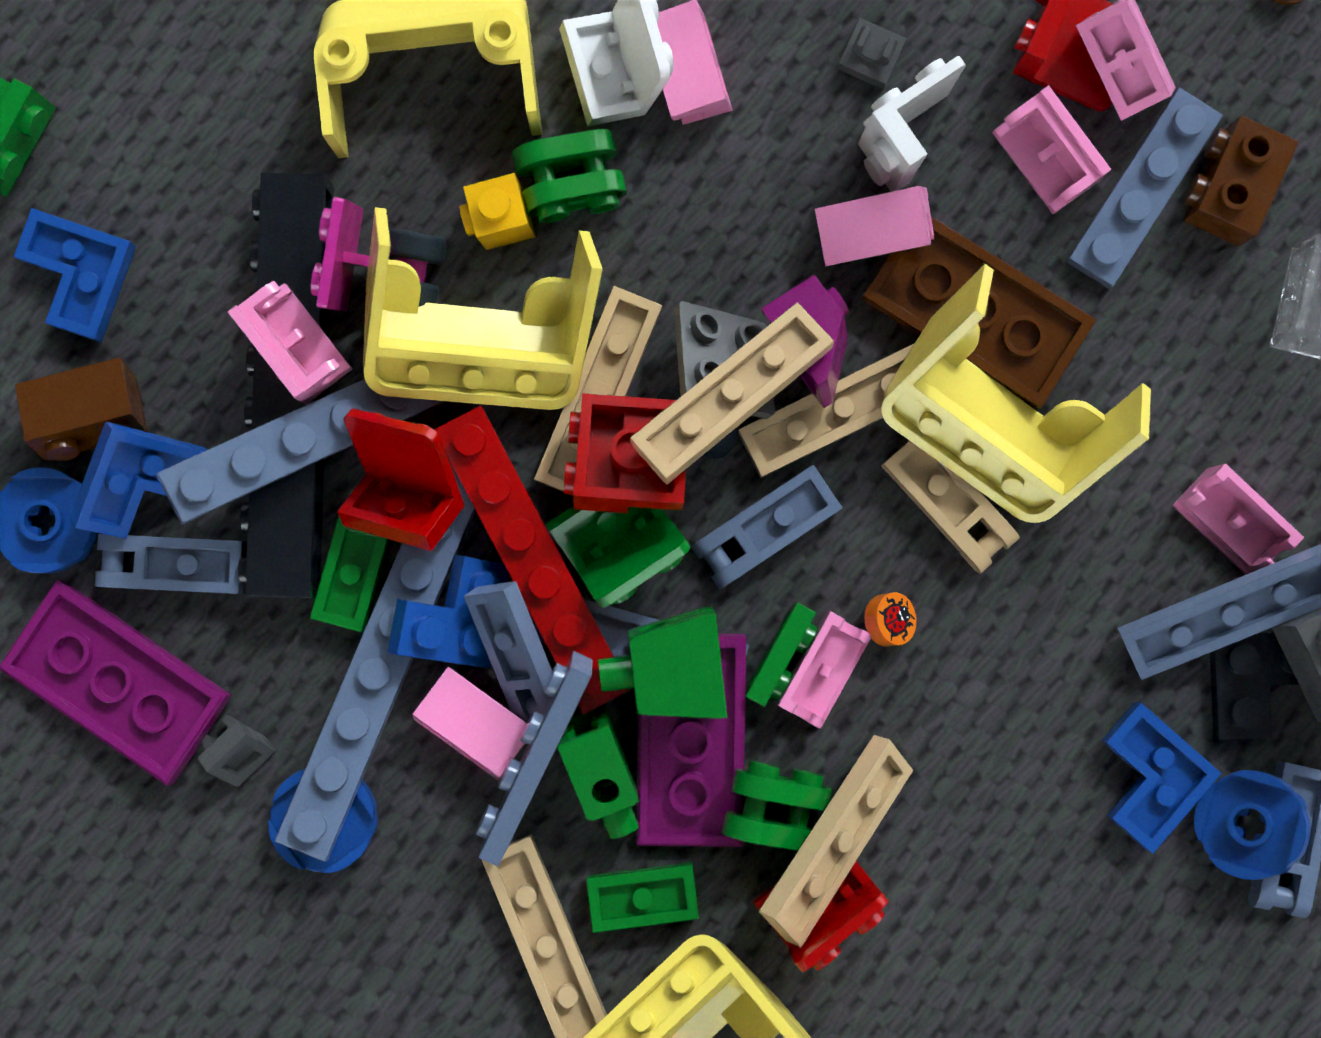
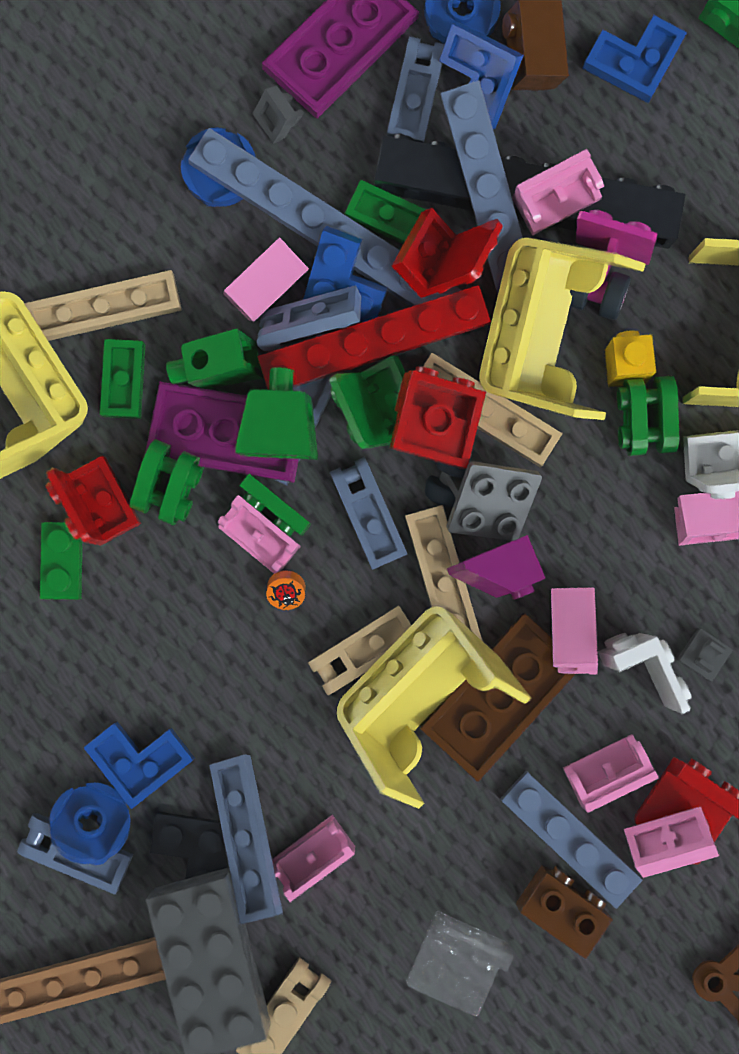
camera: 105 degrees right, 0 degrees up
(523, 776) = (246, 321): sand blue plate -> none
(731, 393) = (467, 496): tan plate -> none
(836, 841) = (135, 519): tan plate -> none
(910, 935) = (60, 562): none -> green plate

